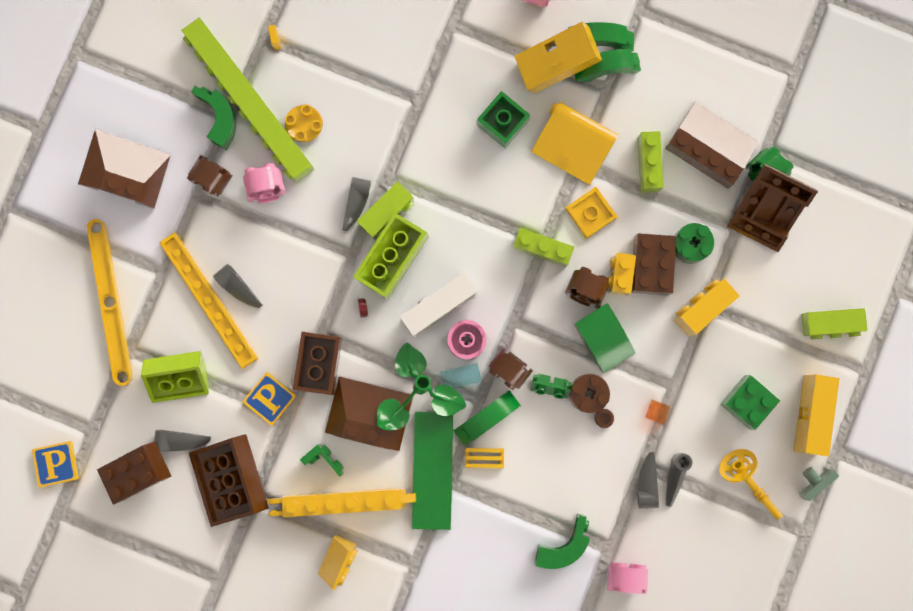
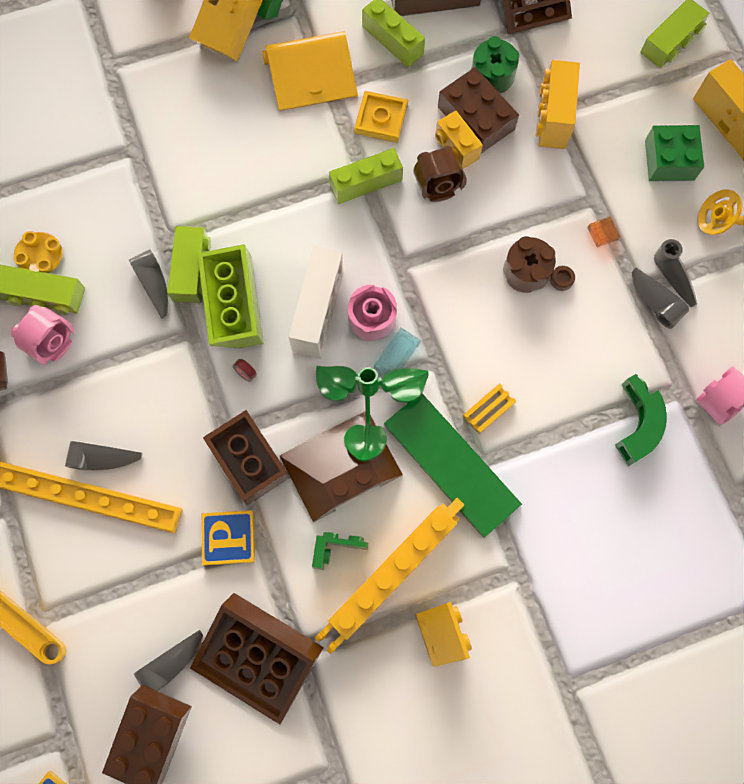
camera: 40 degrees left, 10 degrees down
(175, 376) = (109, 601): lime slope -> none
(487, 418) = (457, 369): green arch -> none
(503, 119) = (228, 98): green brick -> none
(510, 369) = (437, 302): reddish brown brick -> none
(559, 388) = (496, 287): green hinge -> none
(604, 338) = (495, 206): green slope -> none

